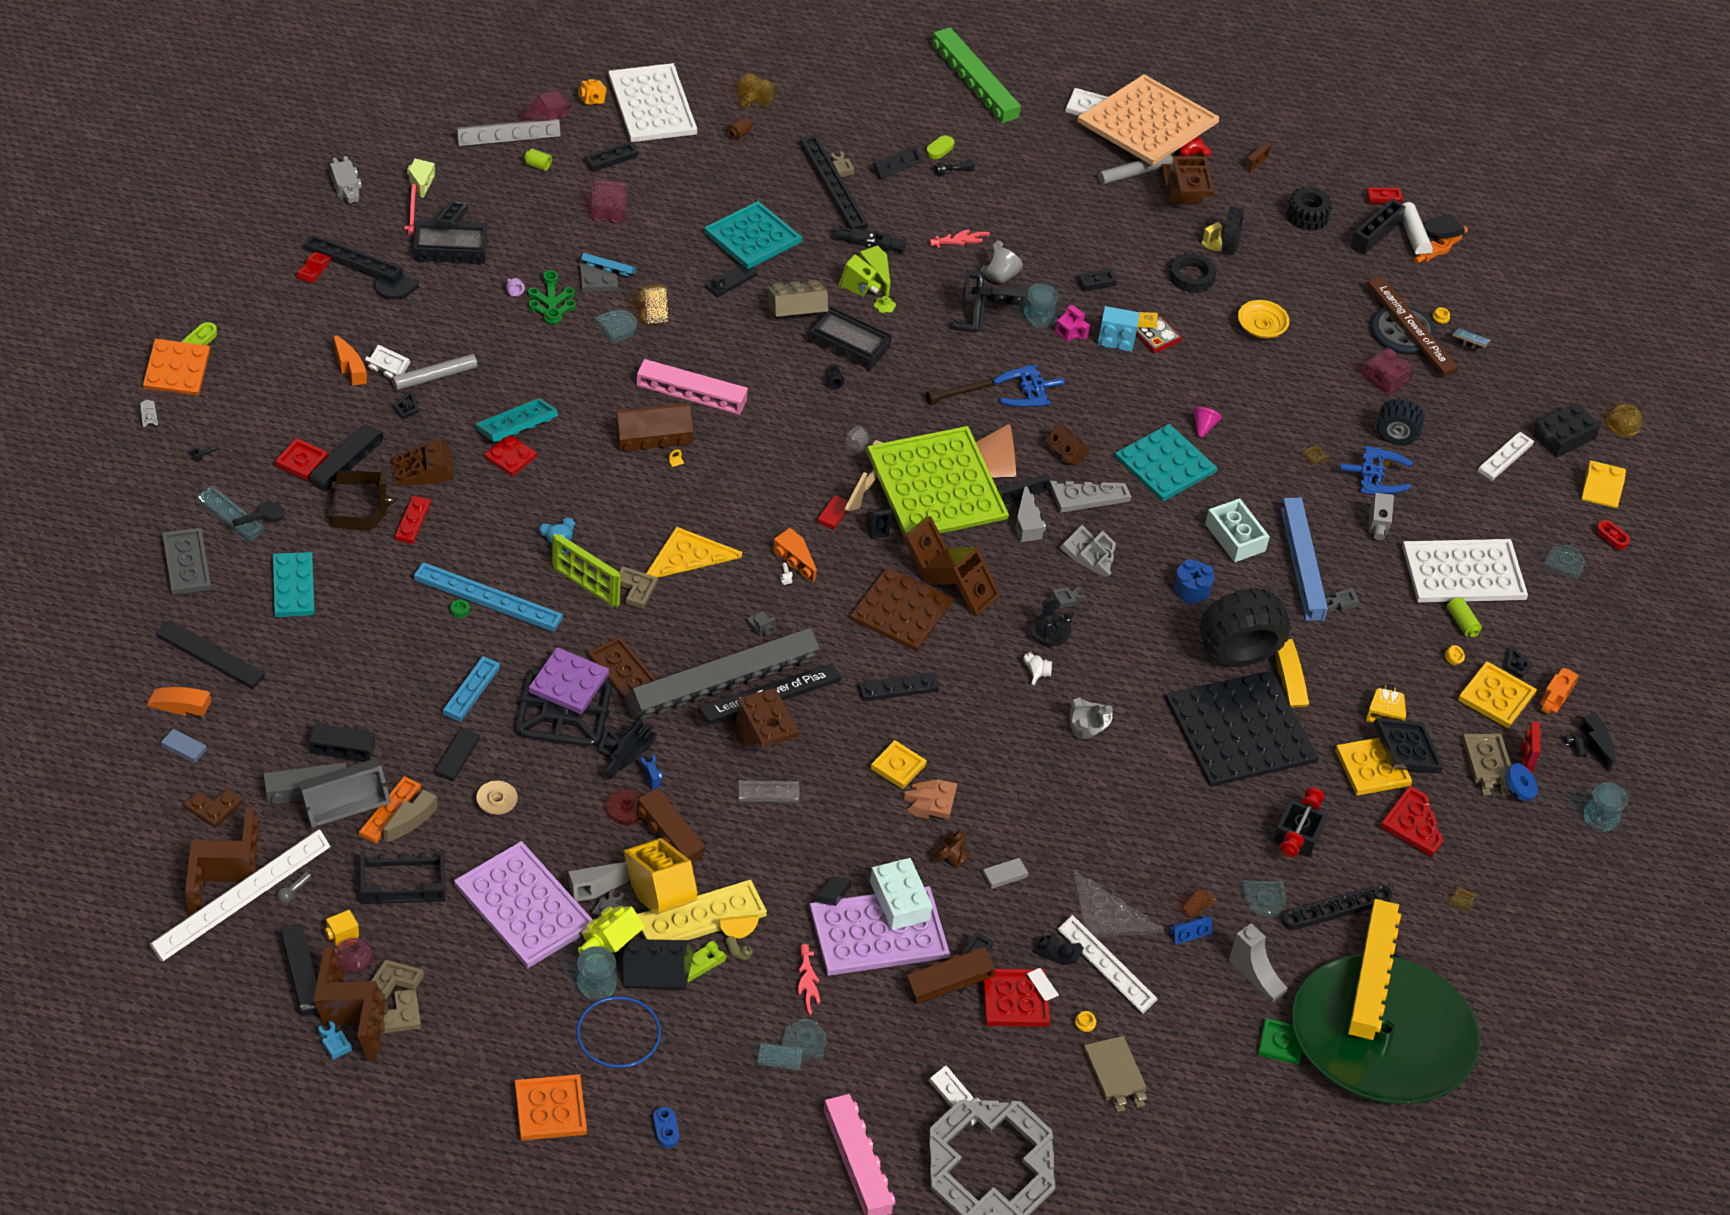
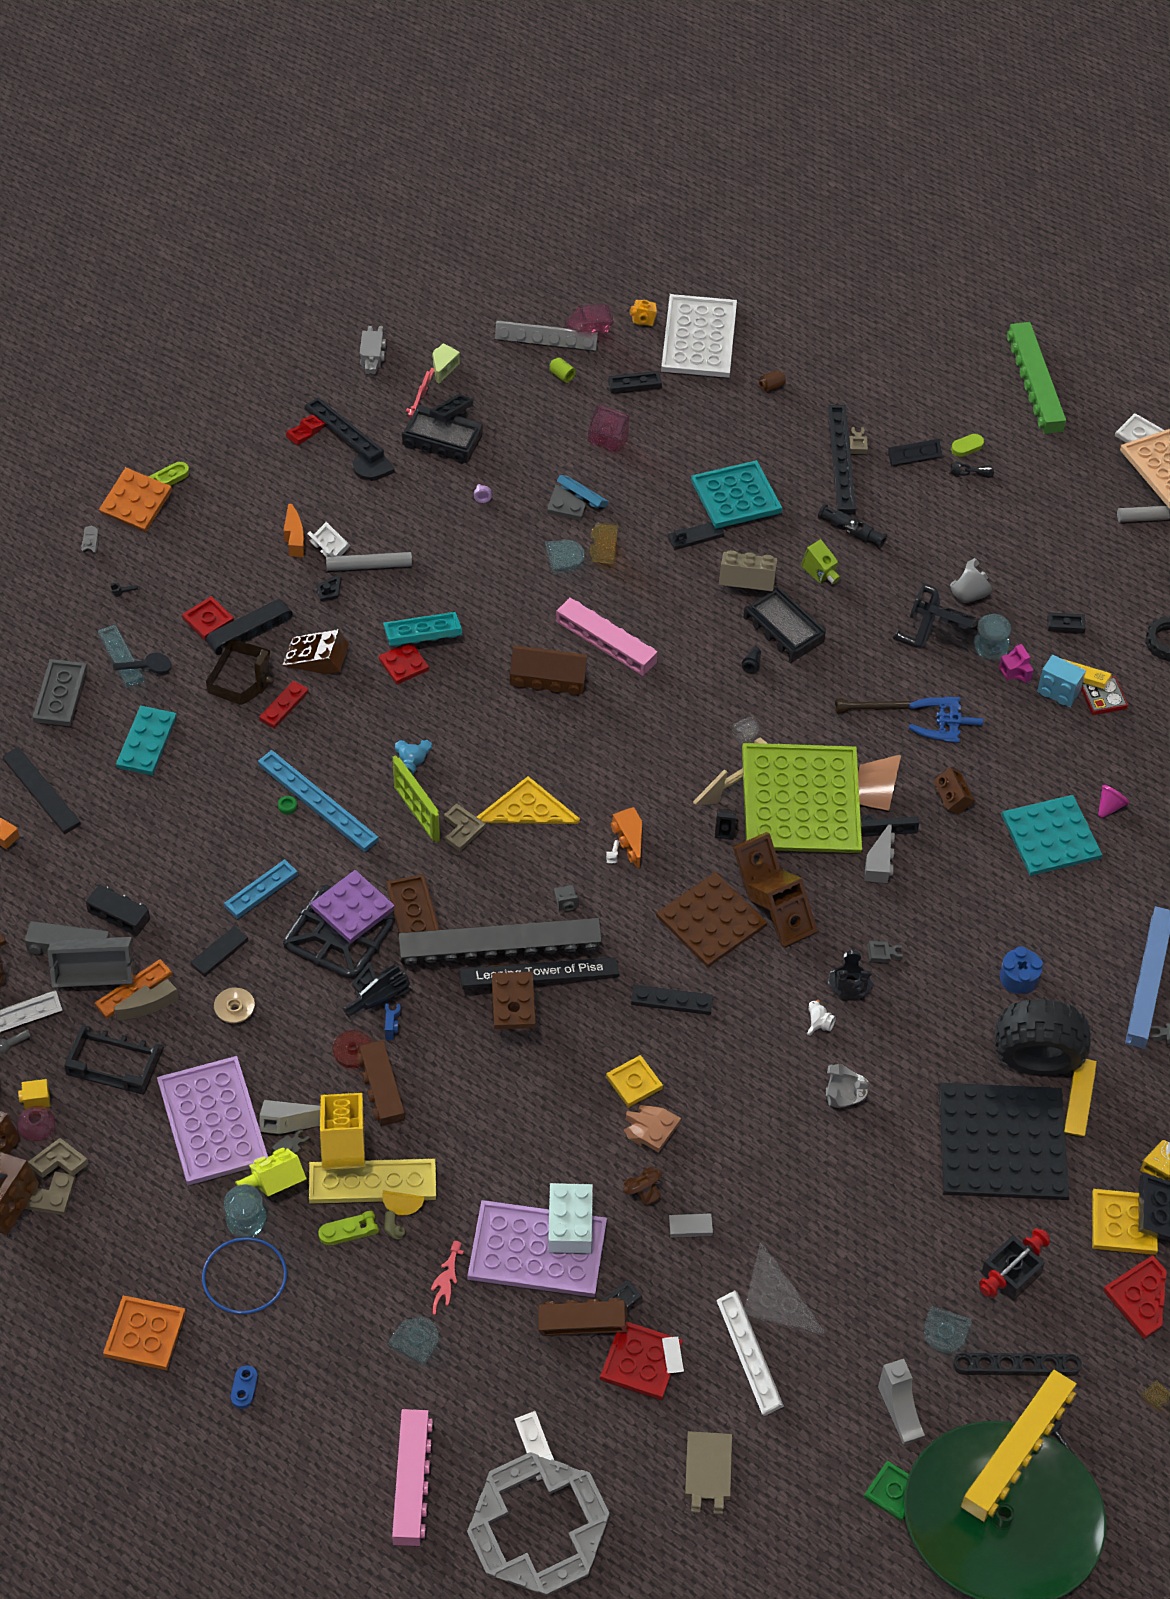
camera: 25 degrees right, 5 degrees up
(552, 314) = (512, 516): green plant -> none
(656, 964) = (305, 1219): black slope -> none
(674, 461) = (559, 708): yellow piece -> none
(756, 90) = (806, 345): clear yellow brick -> none
(768, 791) = (494, 1072): clear plate -> none
(780, 1056) = (382, 1349): clear light blue plate -> none
(833, 513) = (684, 804): red tile -> none
(834, 891) = (510, 1194): black tile -> none
(878, 260) = (845, 551): lime slope -> none
(885, 305) = (837, 597): lime plant -> none
(959, 239) = (943, 546): coral piece -> none
(1054, 950) = (705, 1323): black slope -> none
(1085, 1021) = (700, 1407): yellow plate -> none
(1088, 495) = (948, 849): light grey wing -> none
(1093, 555) = (930, 908): light grey slope -> none
(1193, 929) = (858, 1343): blue hinge -> none
(1199, 901) = (873, 1314): clear orange piece -> none
(1237, 530) = (1090, 928): light aqua brick -> none

